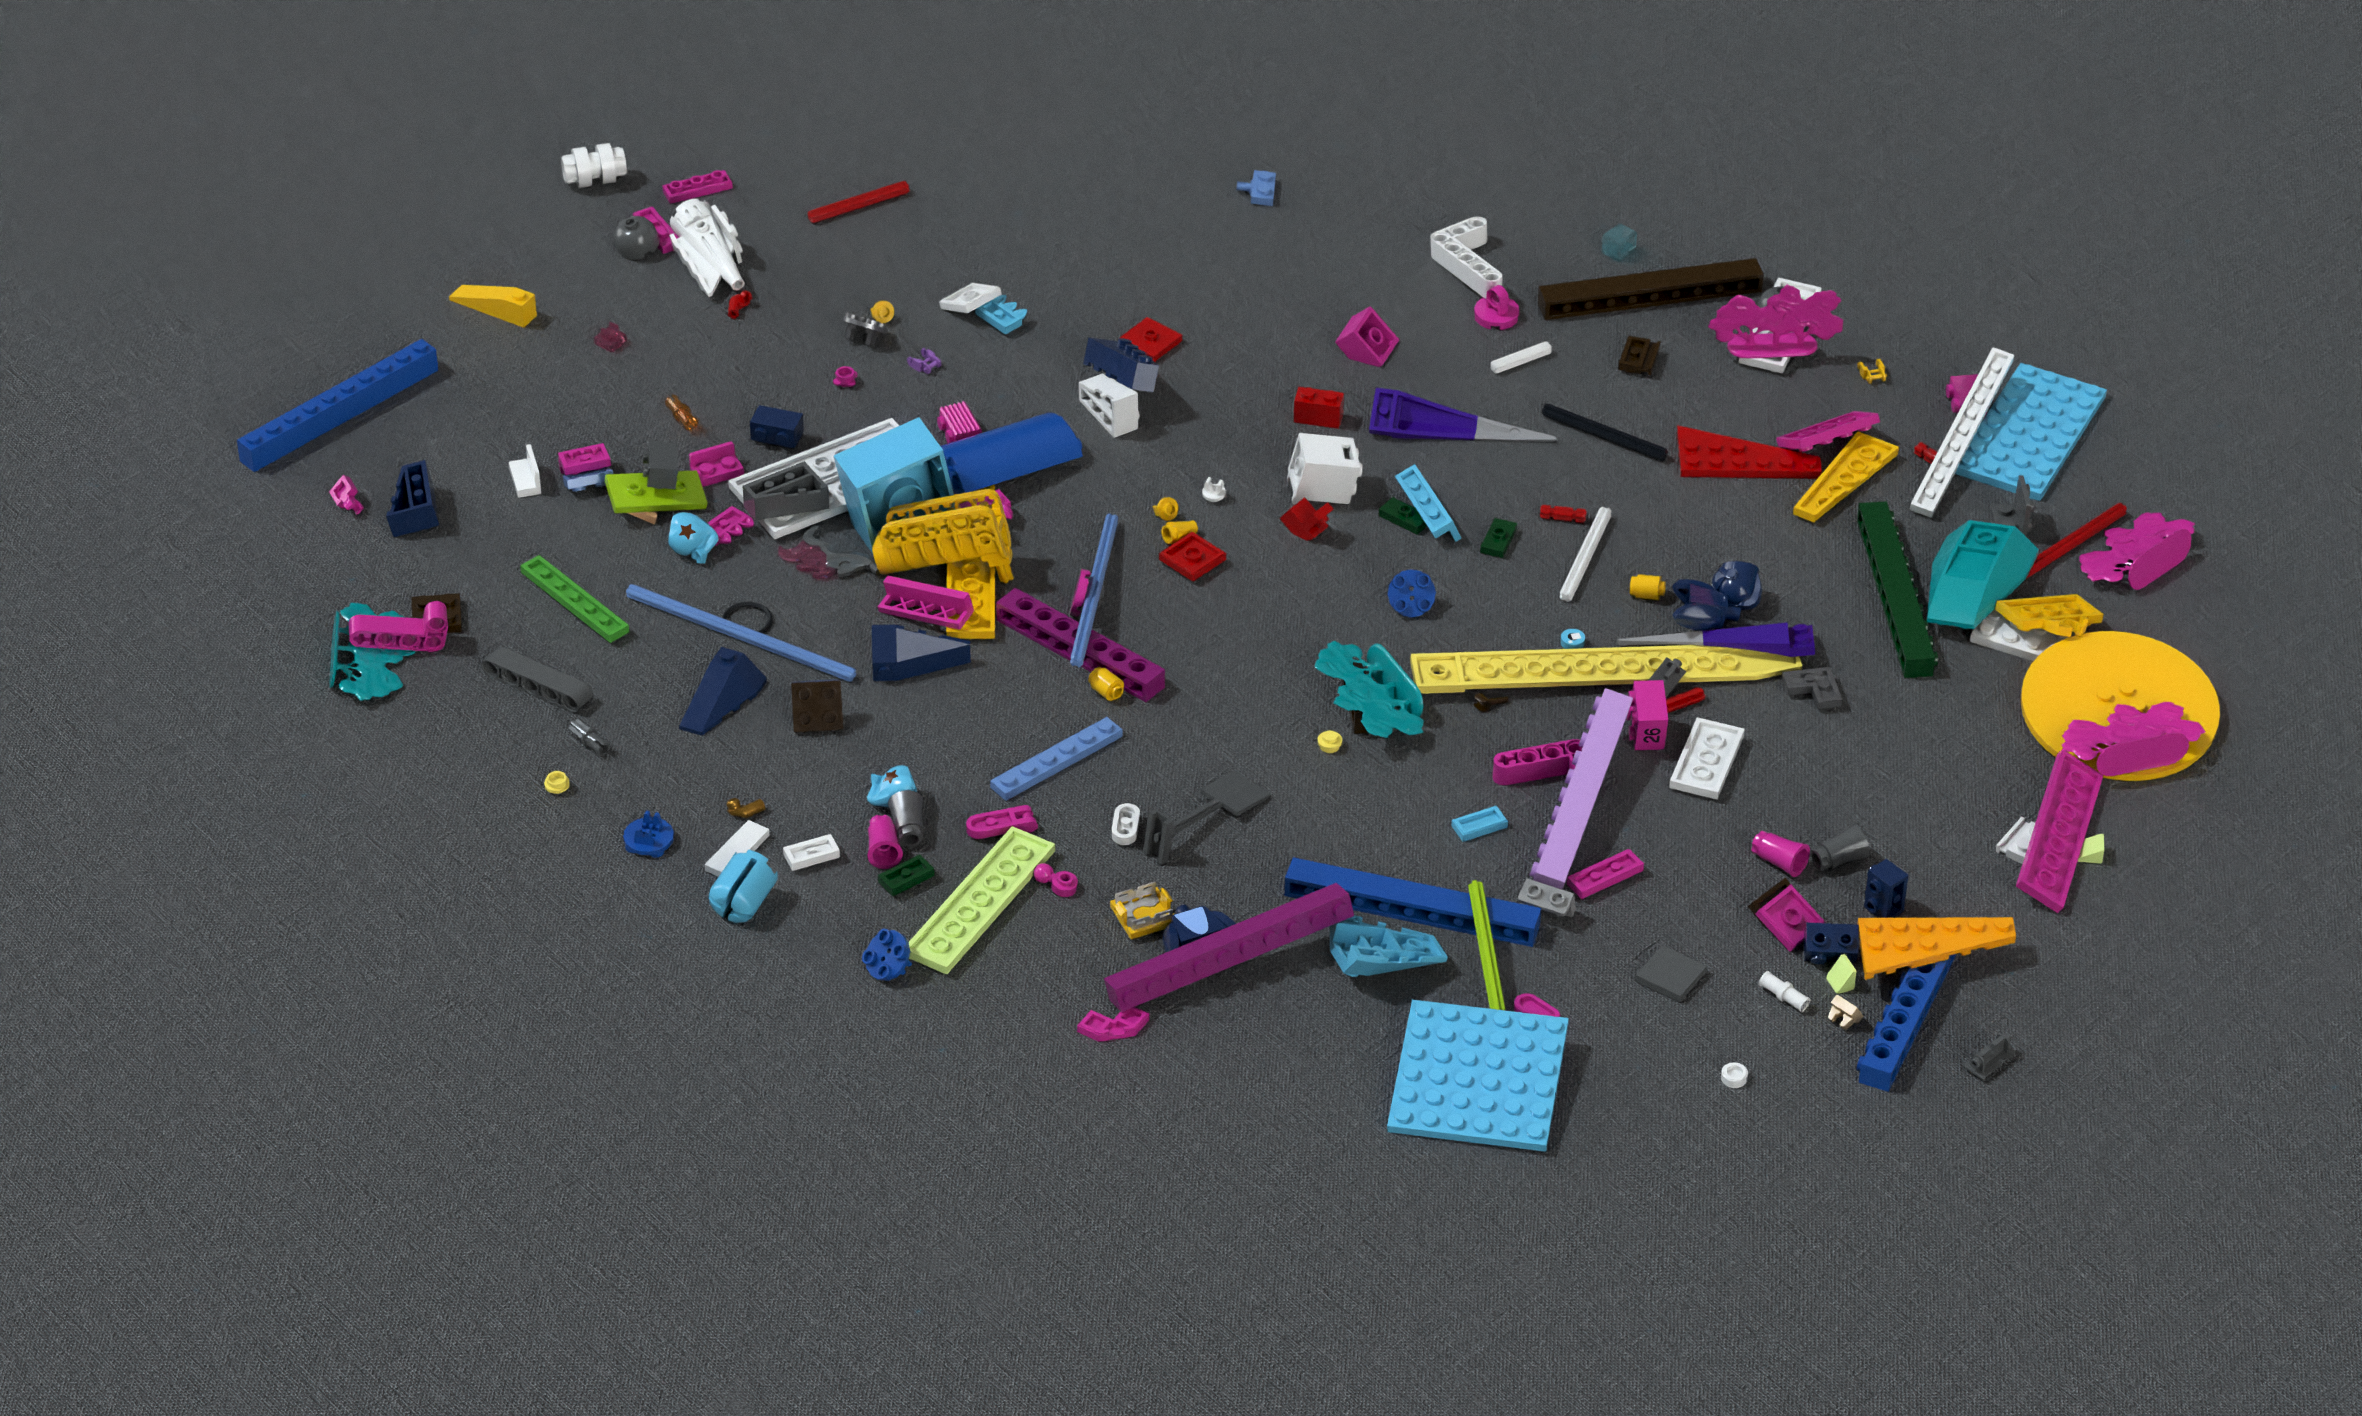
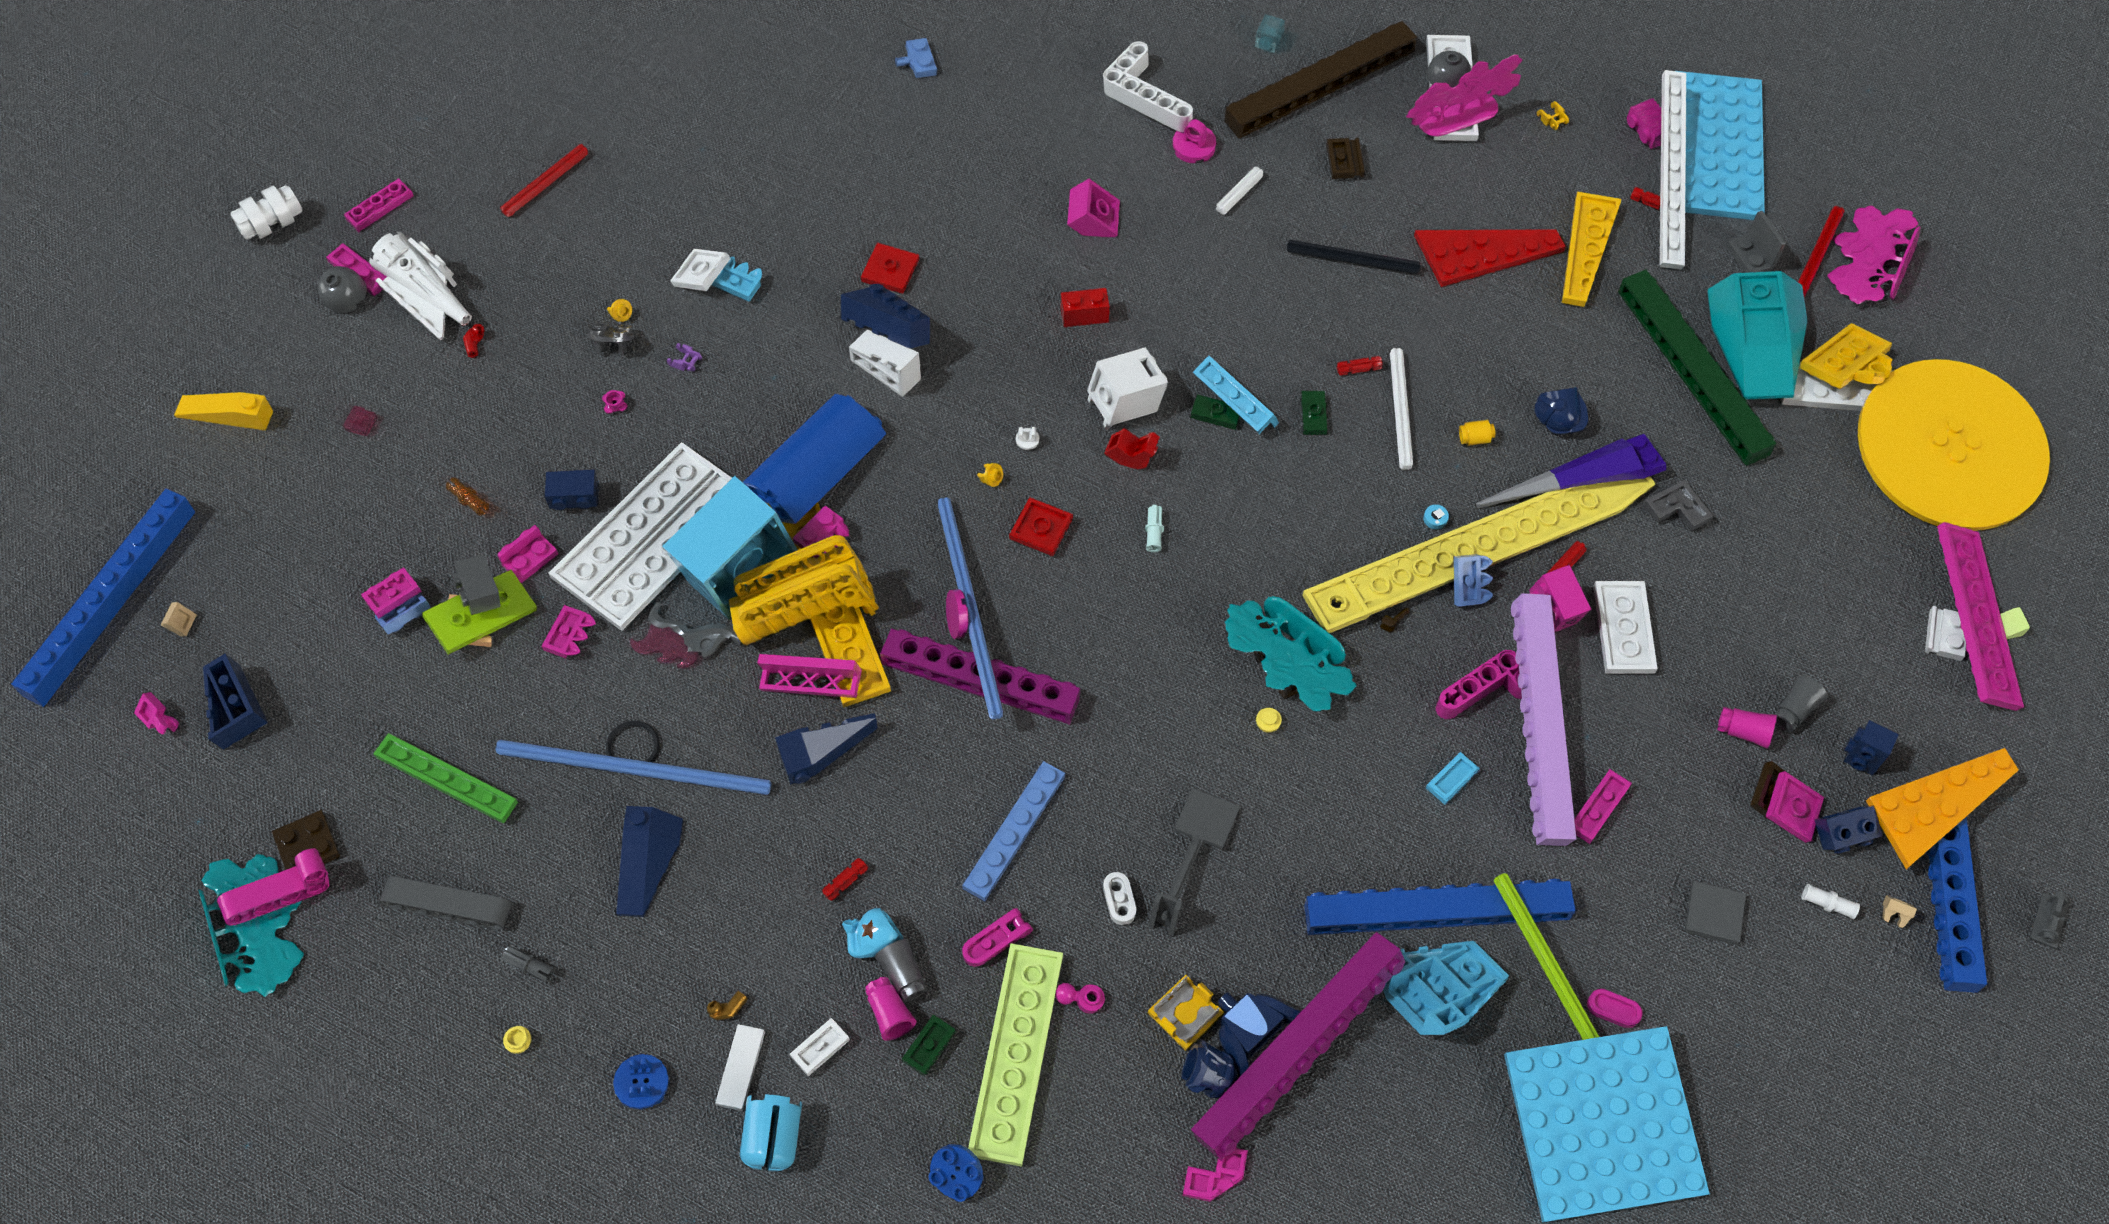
camera: 20 degrees left, 20 degrees up
(393, 436) = (178, 619): none -> tan tile
(526, 475) = (335, 627): white panel -> none
(691, 536) = (539, 660): medium azure piece -> none
(786, 493) = (617, 580): dark grey wedge -> none
(817, 705) = (753, 850): dark brown plate -> none
(888, 752) = (845, 879): none -> red axle
(957, 422) = (752, 432): dark pink brick -> none
(1106, 683) = (1026, 719): yellow brick -> none
(1140, 942) = (1208, 1070): none -> dark blue helmet
(1177, 530) = (1014, 500): yellow cone -> none
(1297, 584) = (1154, 529): none -> light aqua axle
(1415, 418) = (1177, 293): dark purple plate -> none
(1423, 593) = (1280, 508): blue plate -> none
(1547, 898) = (1567, 865): light grey bracket -> none
(1573, 684) = (1470, 579): none -> medium blue plate
(1670, 672) = (1545, 547): dark grey hinge -> none
(1703, 606) = (1542, 443): dark blue torso -> none
(1734, 1075) = (1832, 1025): white tile -> none
(1827, 430) = (1553, 199): dark pink plate -> none
(1842, 975) = (1872, 862): yellowish green slope -> none
(2140, 738) = (1989, 474): dark pink plant -> none

